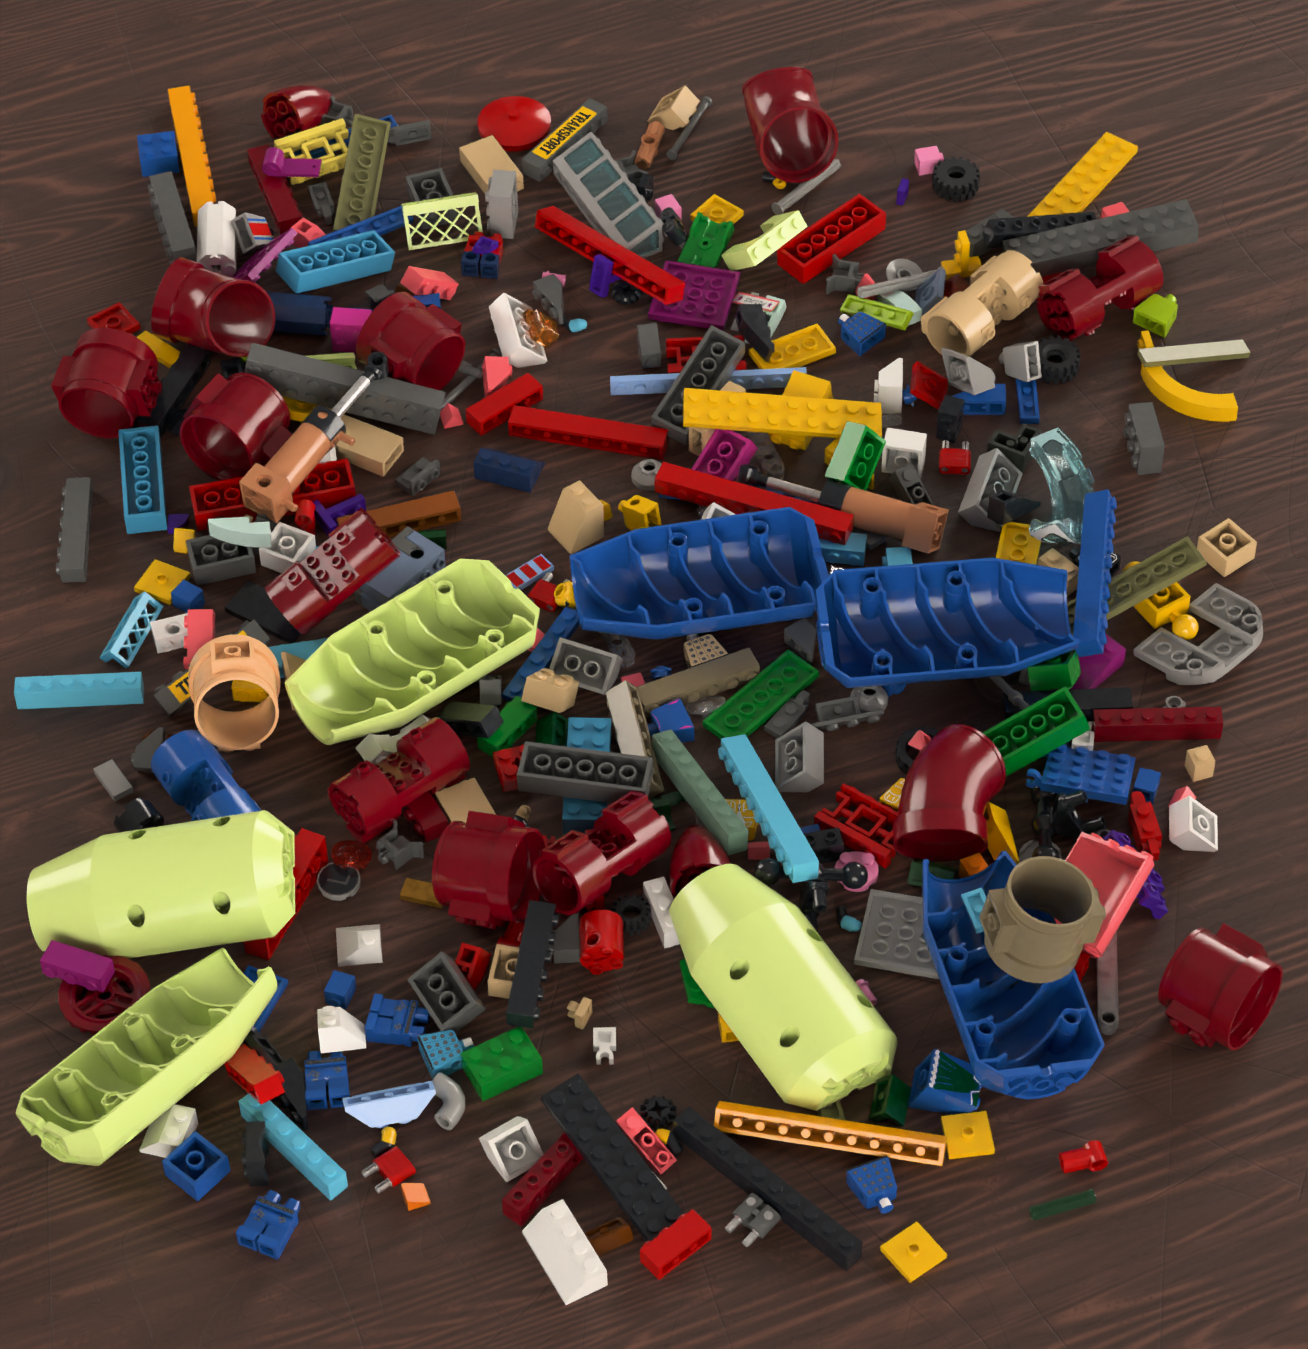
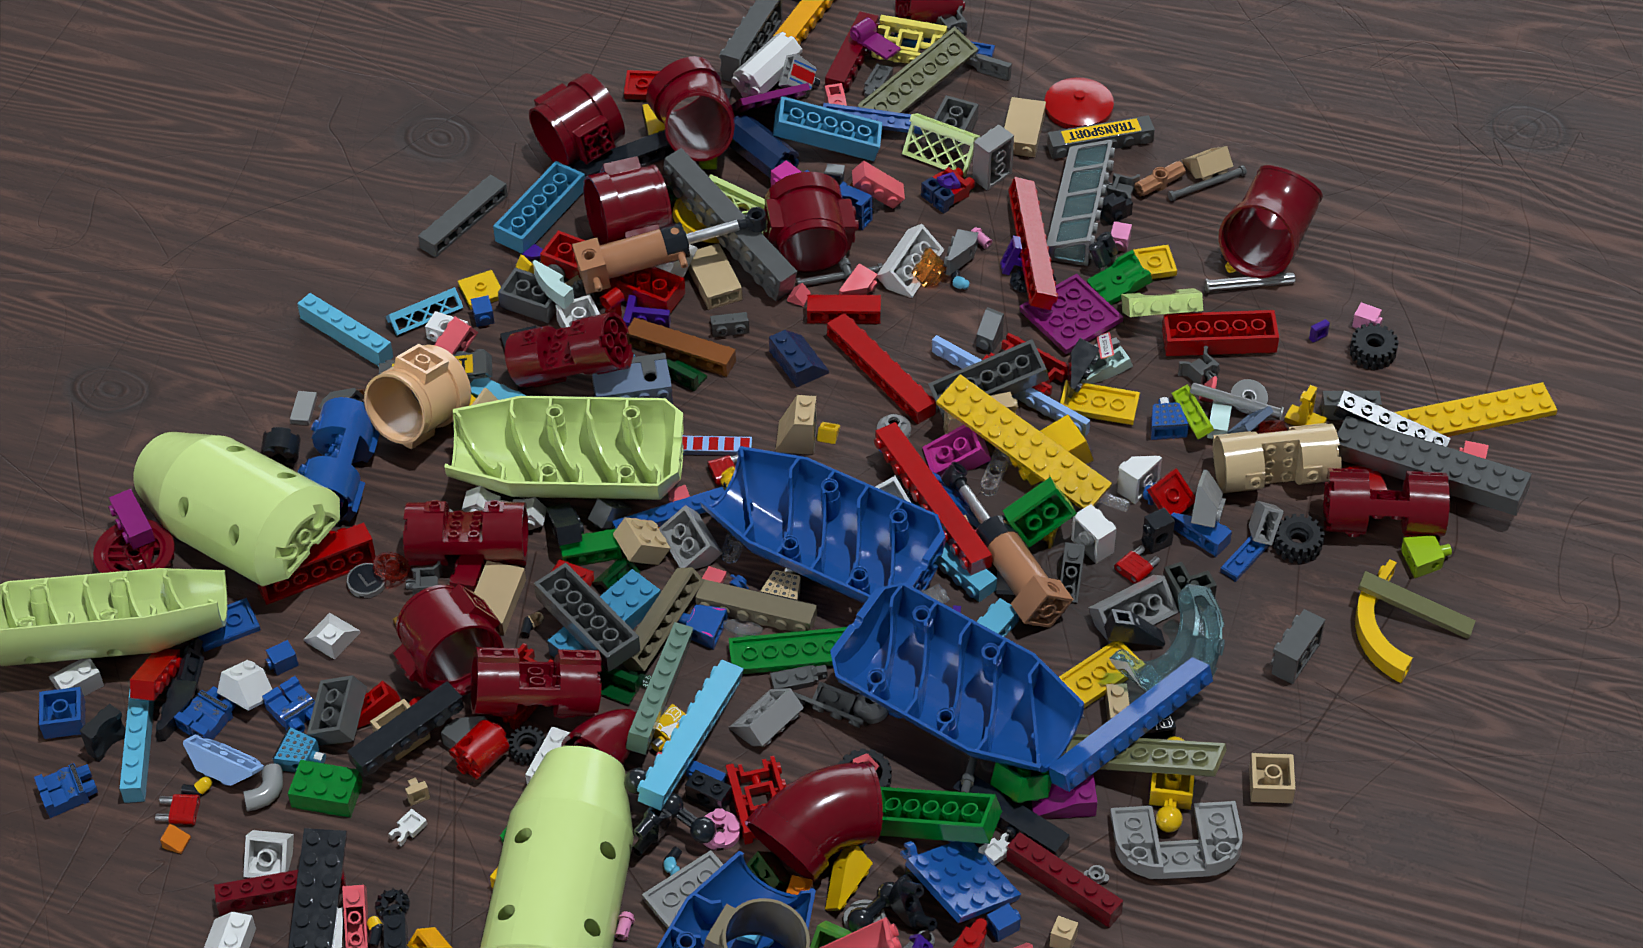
camera: 40 degrees right, 0 degrees up
(640, 513) = (848, 449): yellow torso -> none

